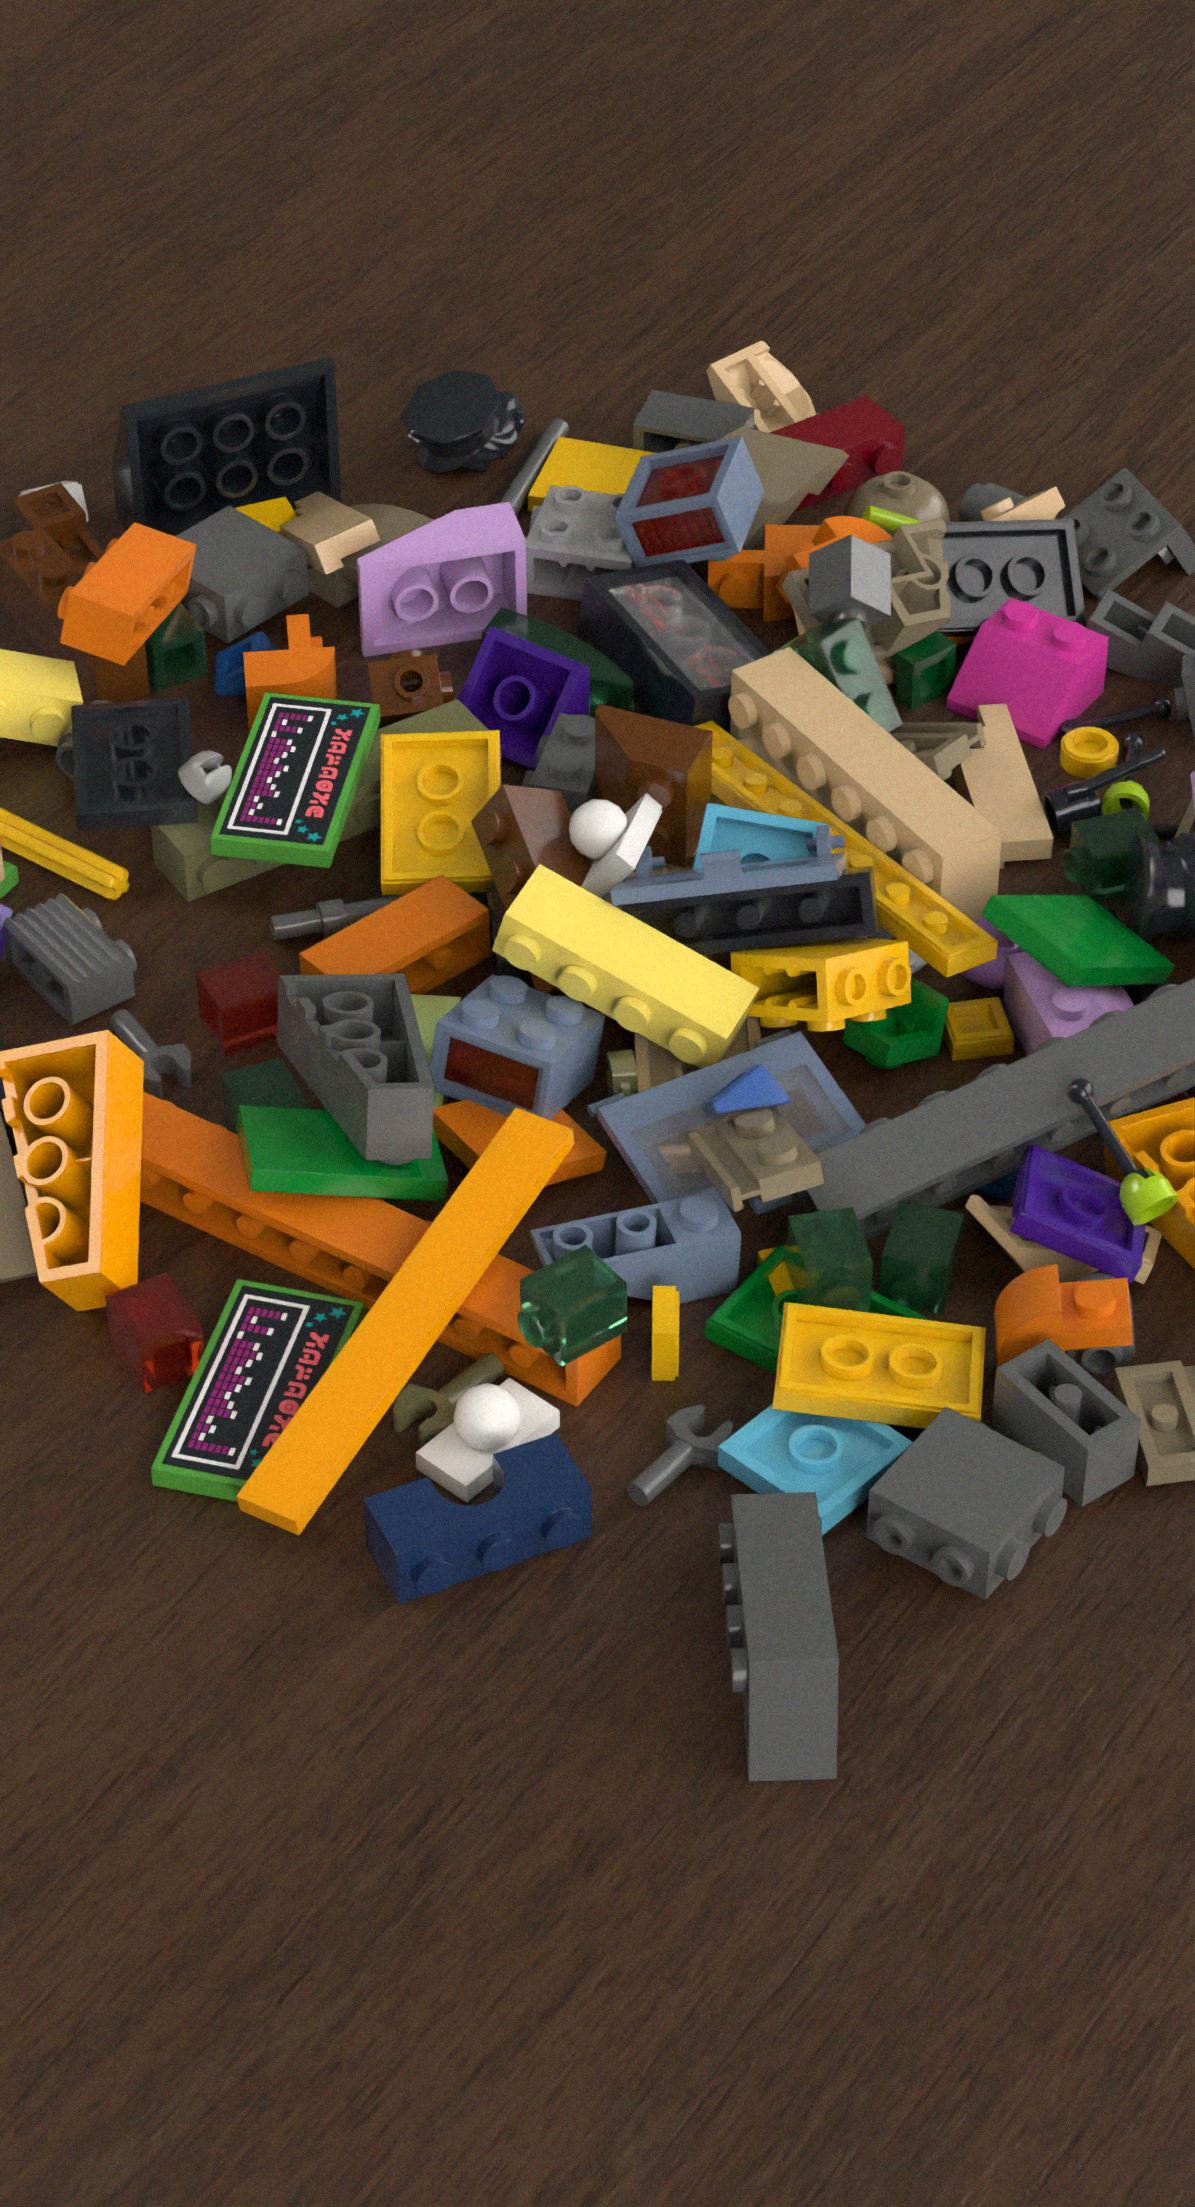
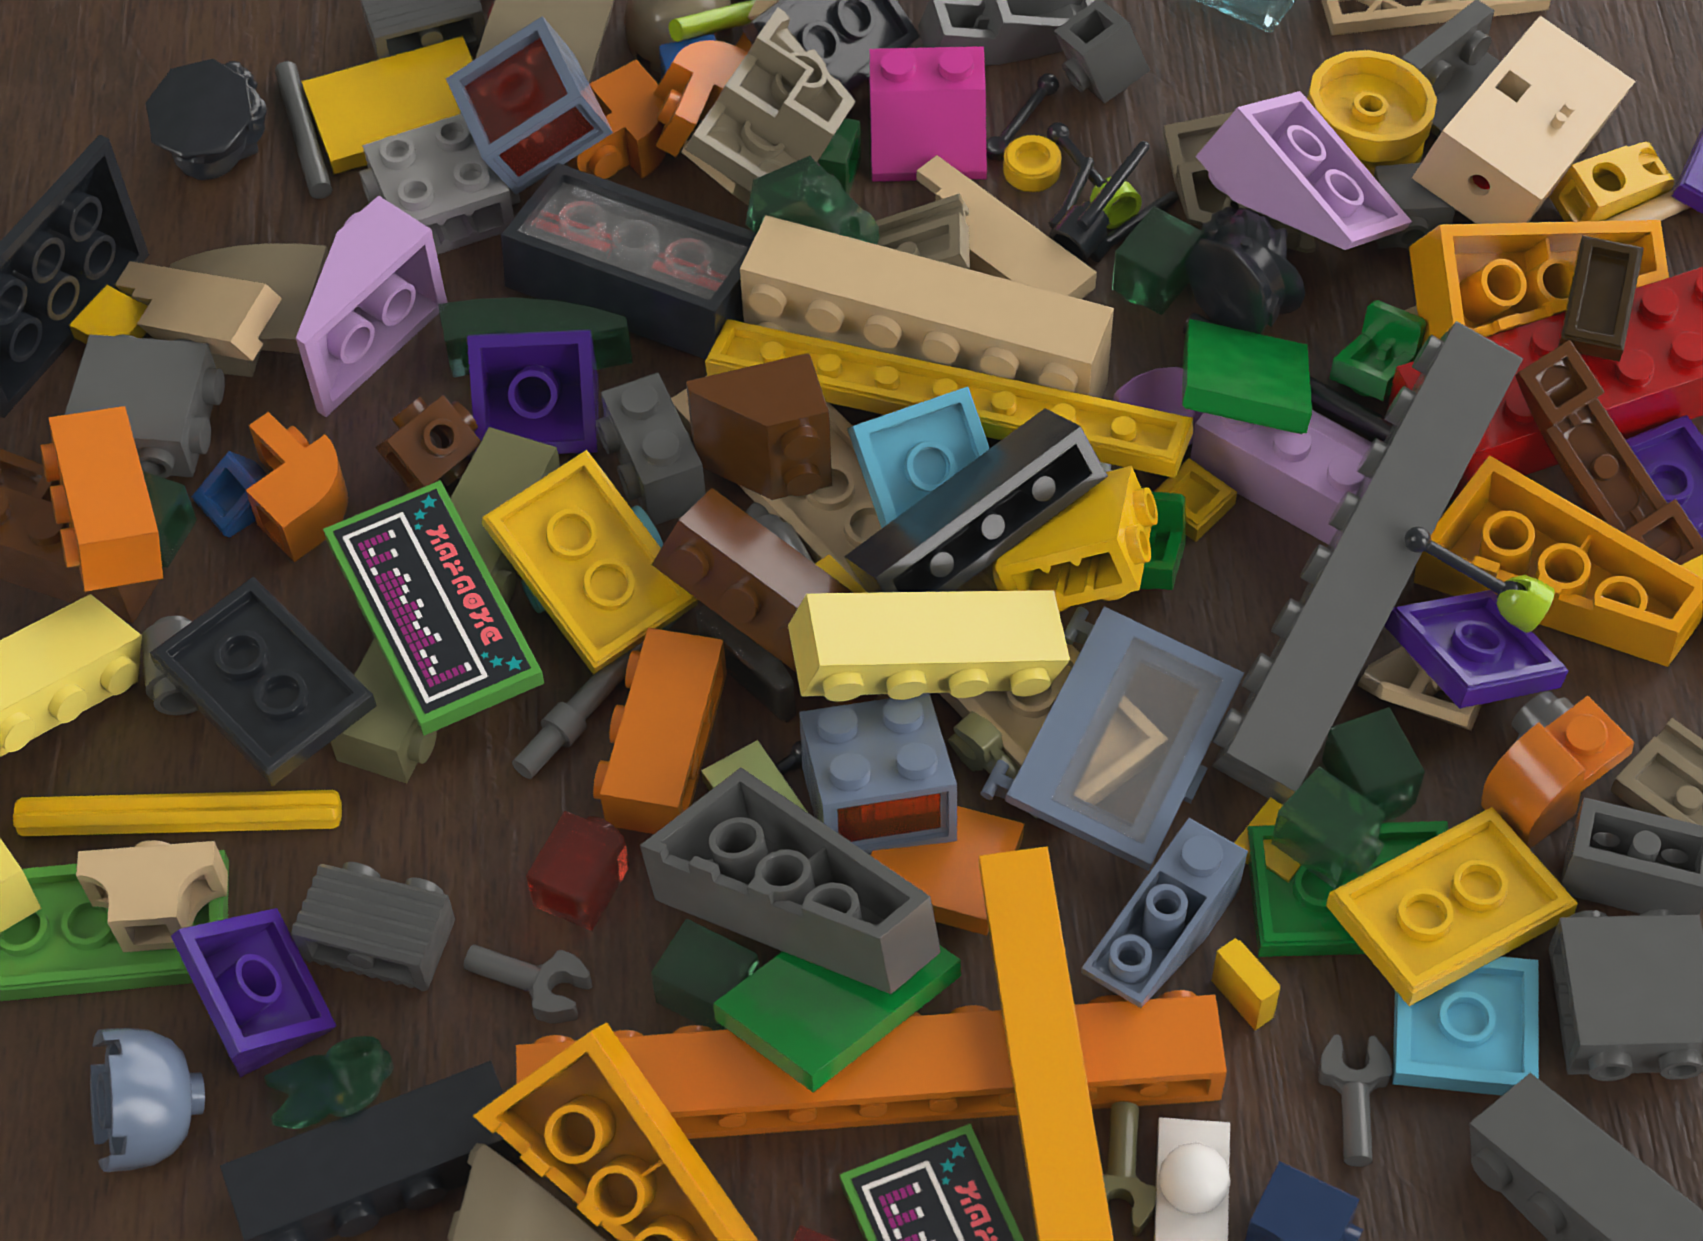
camera: 35 degrees left, 15 degrees up
(205, 776) = (357, 659): light grey hinge -> none
(572, 1306) = (1198, 1028): clear green brick -> none
(612, 839) = (808, 514): white tile -> none
(724, 873) = (950, 496): sand blue piece -> none
(748, 1090) = (1134, 708): blue slope -> none
(756, 1157) = (1198, 768): dark tan plate -> none
(850, 582) = (767, 124): dark grey brick -> none

